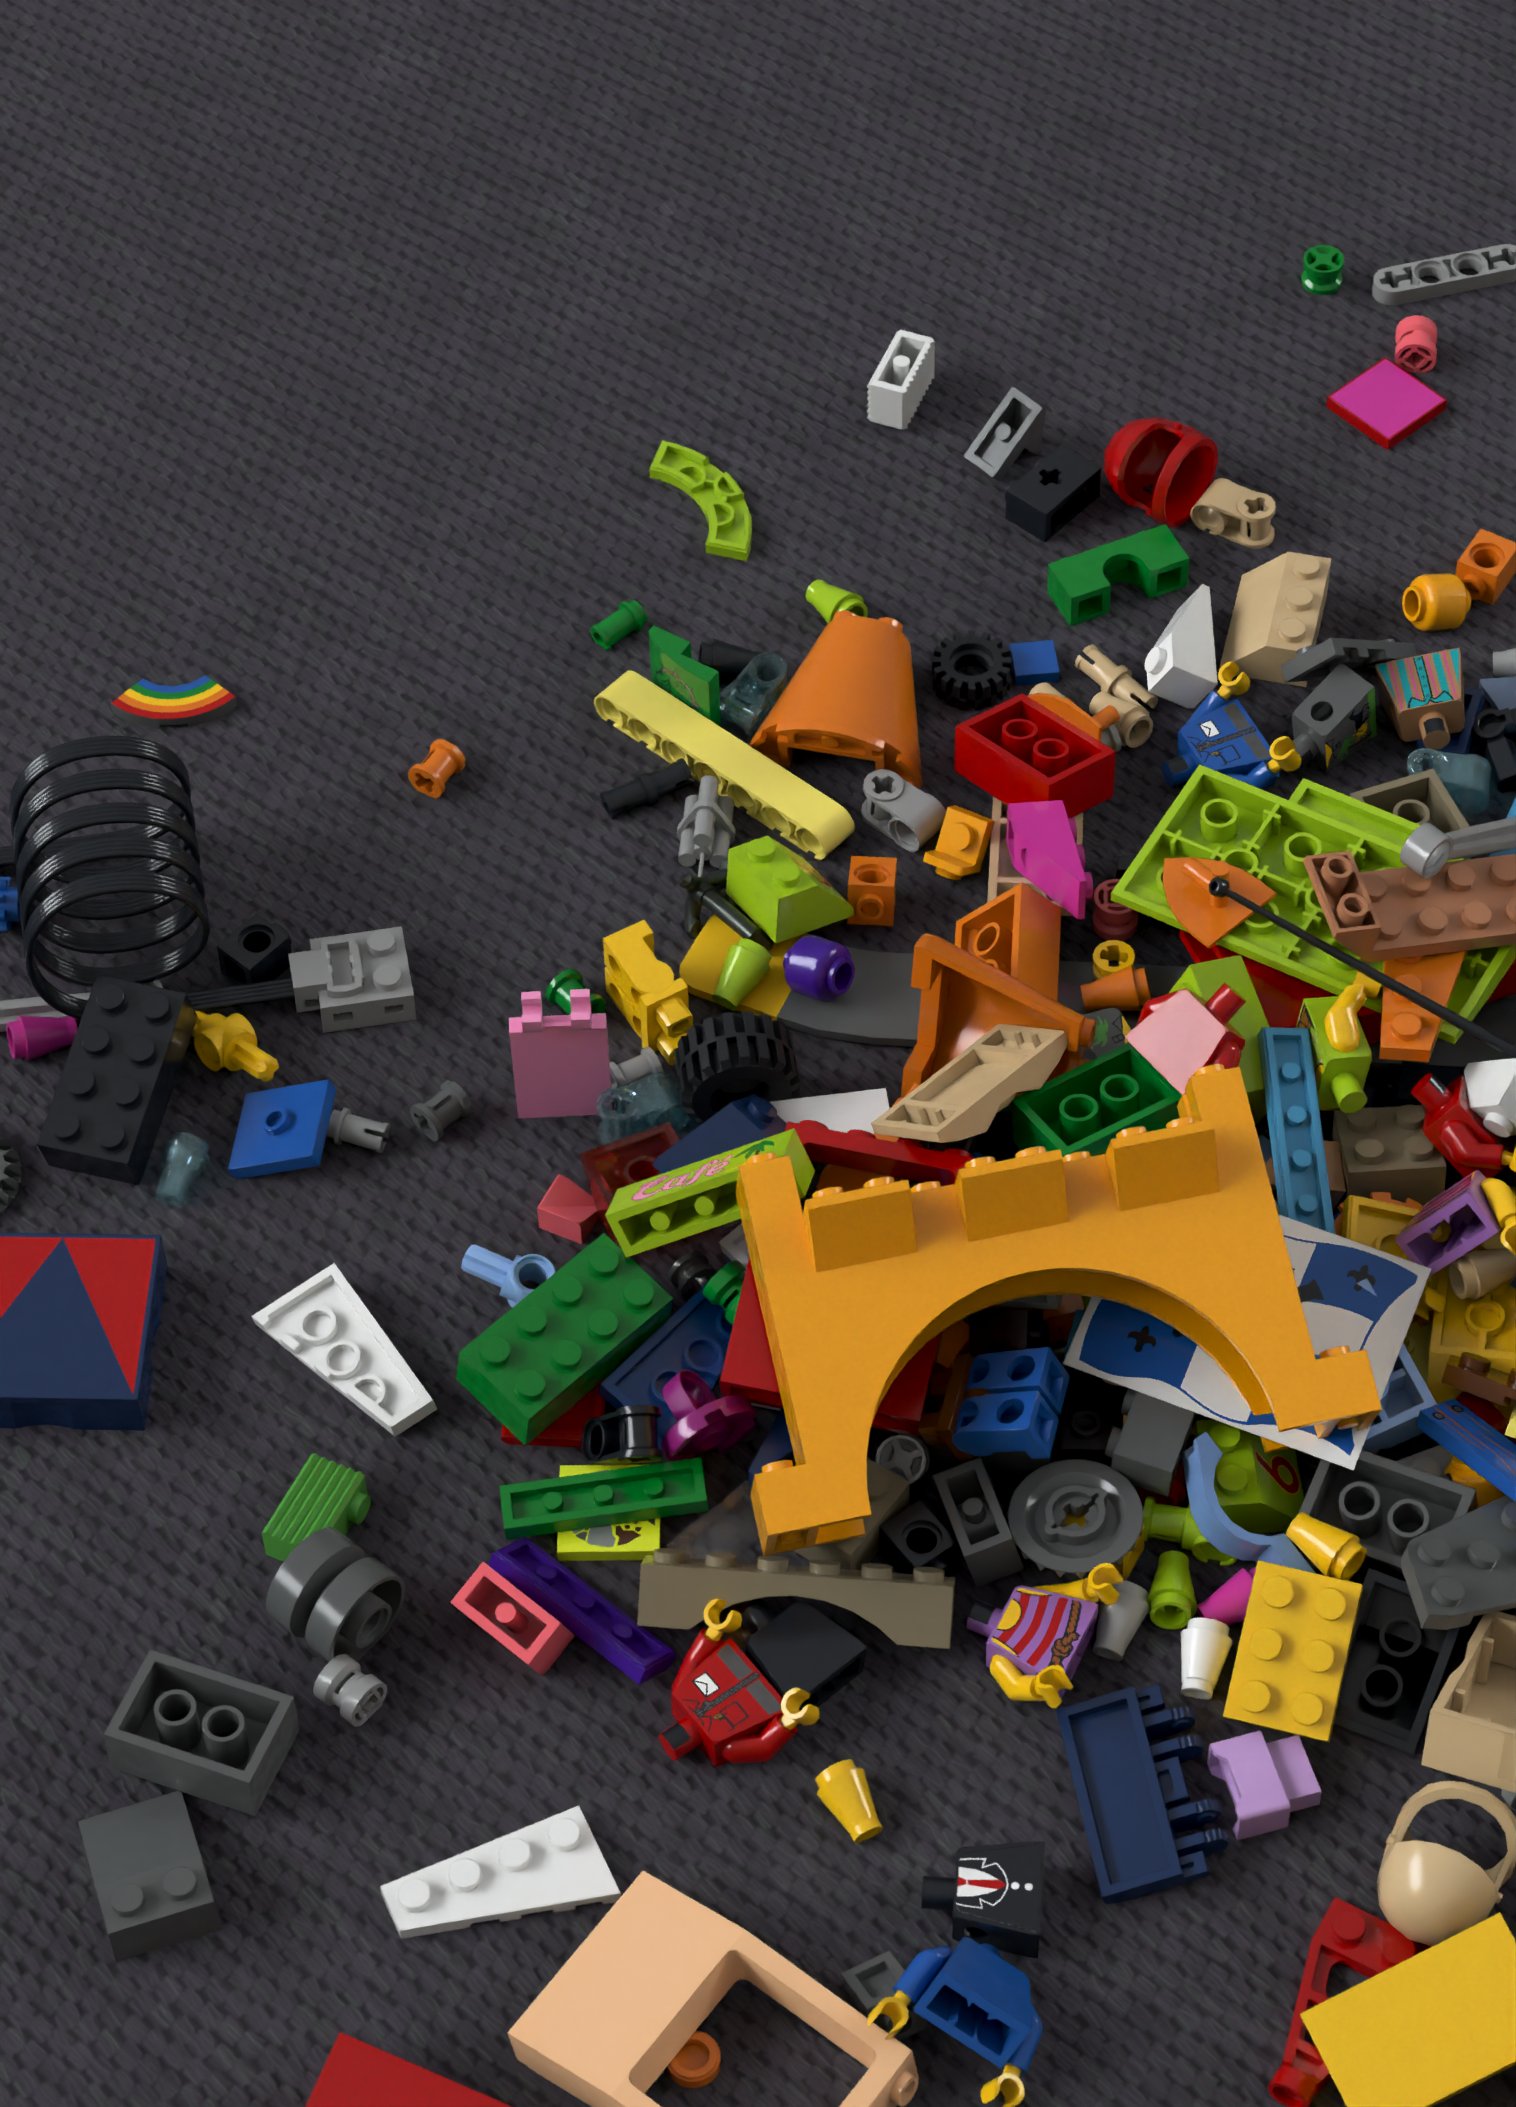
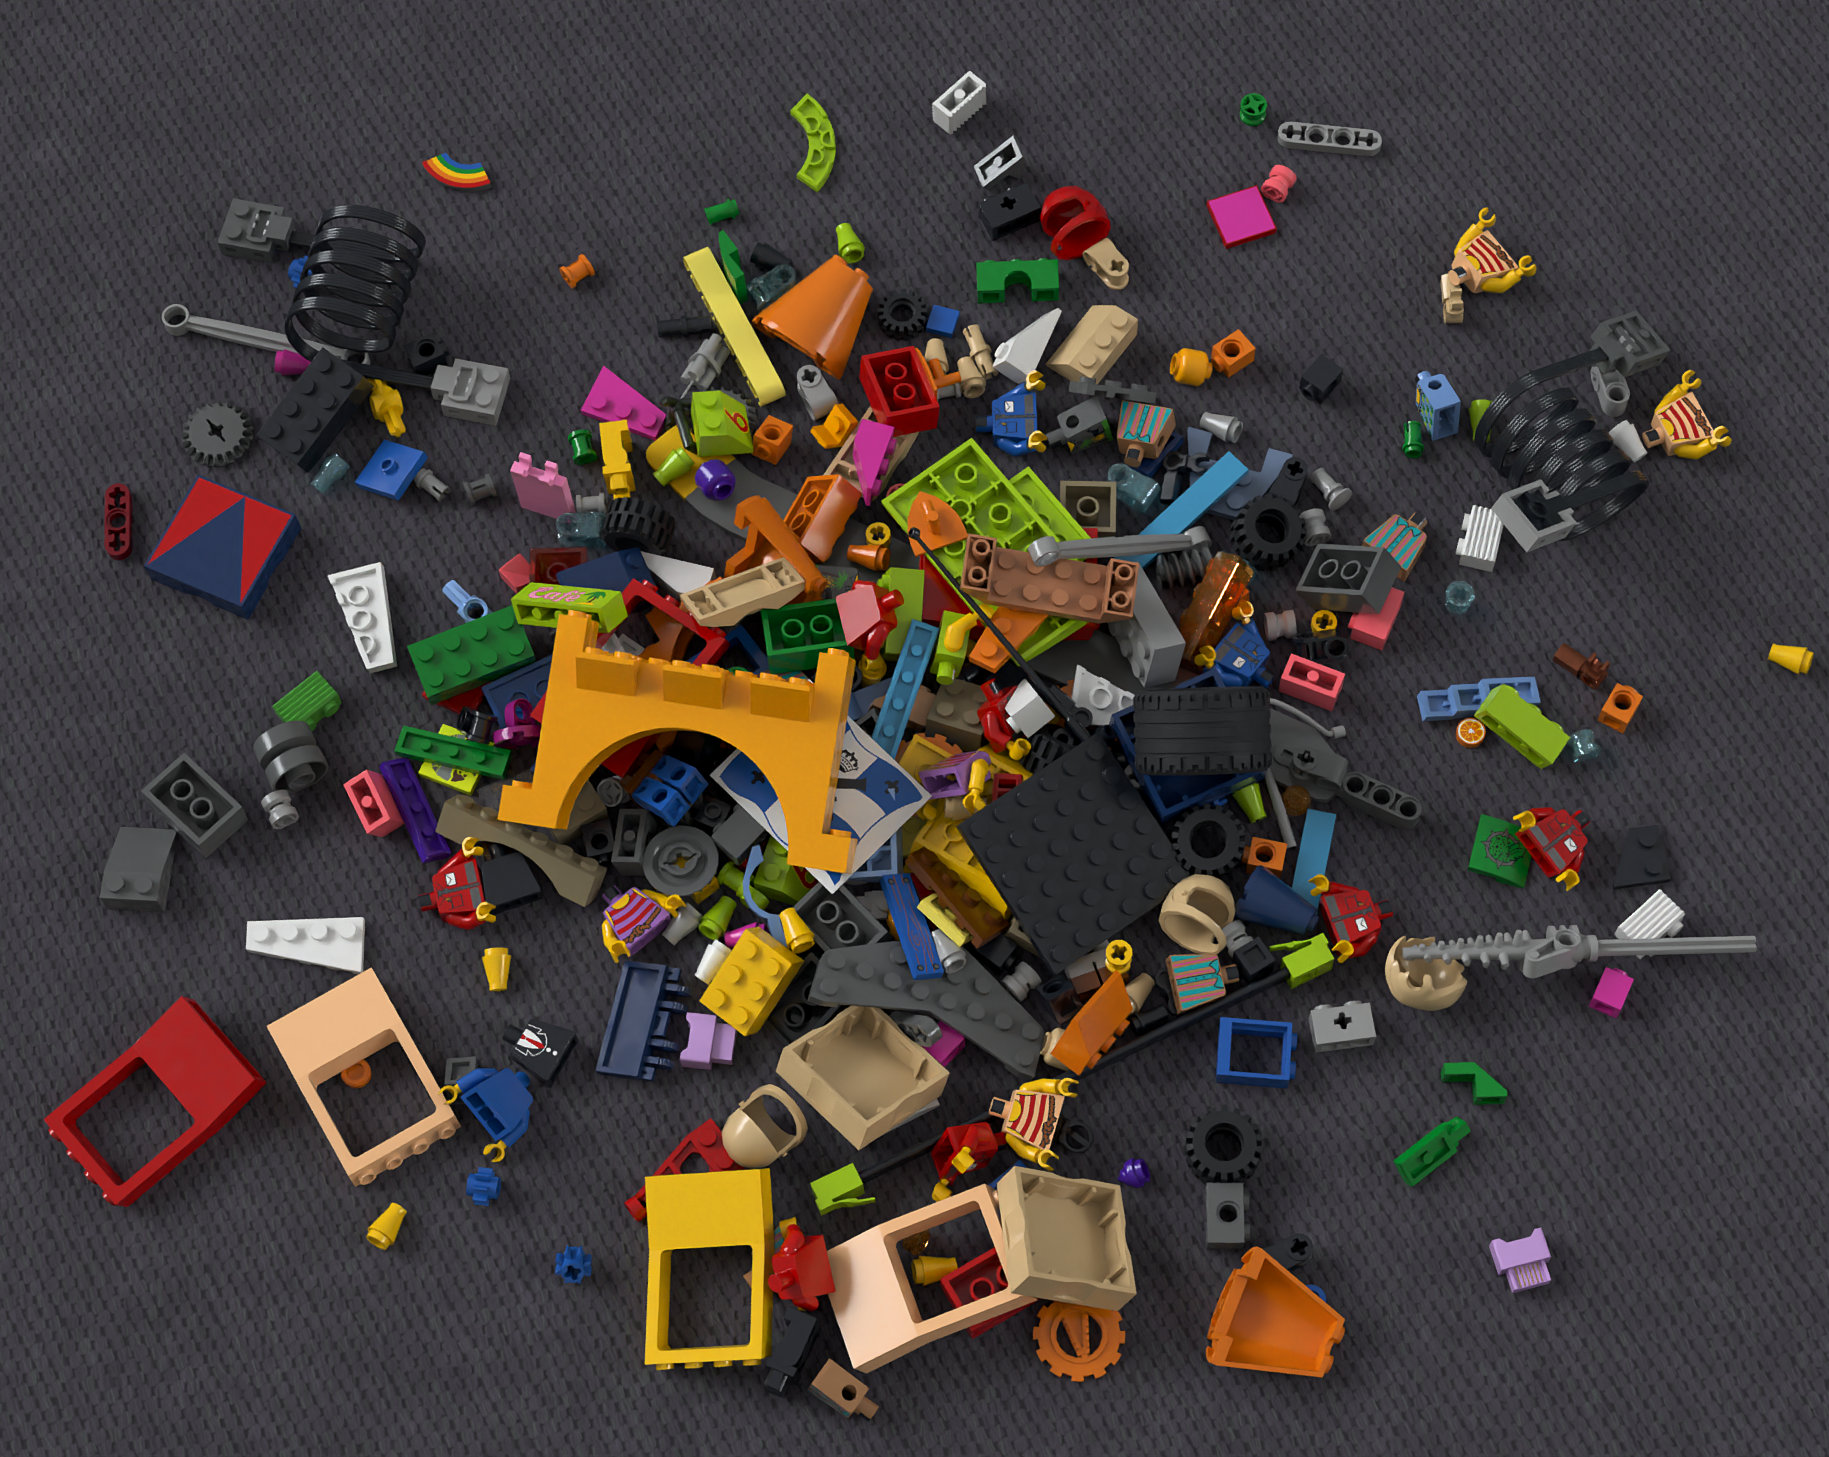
camera: 25 degrees right, 15 degrees up
(582, 918) = (615, 401): none -> dark pink wing

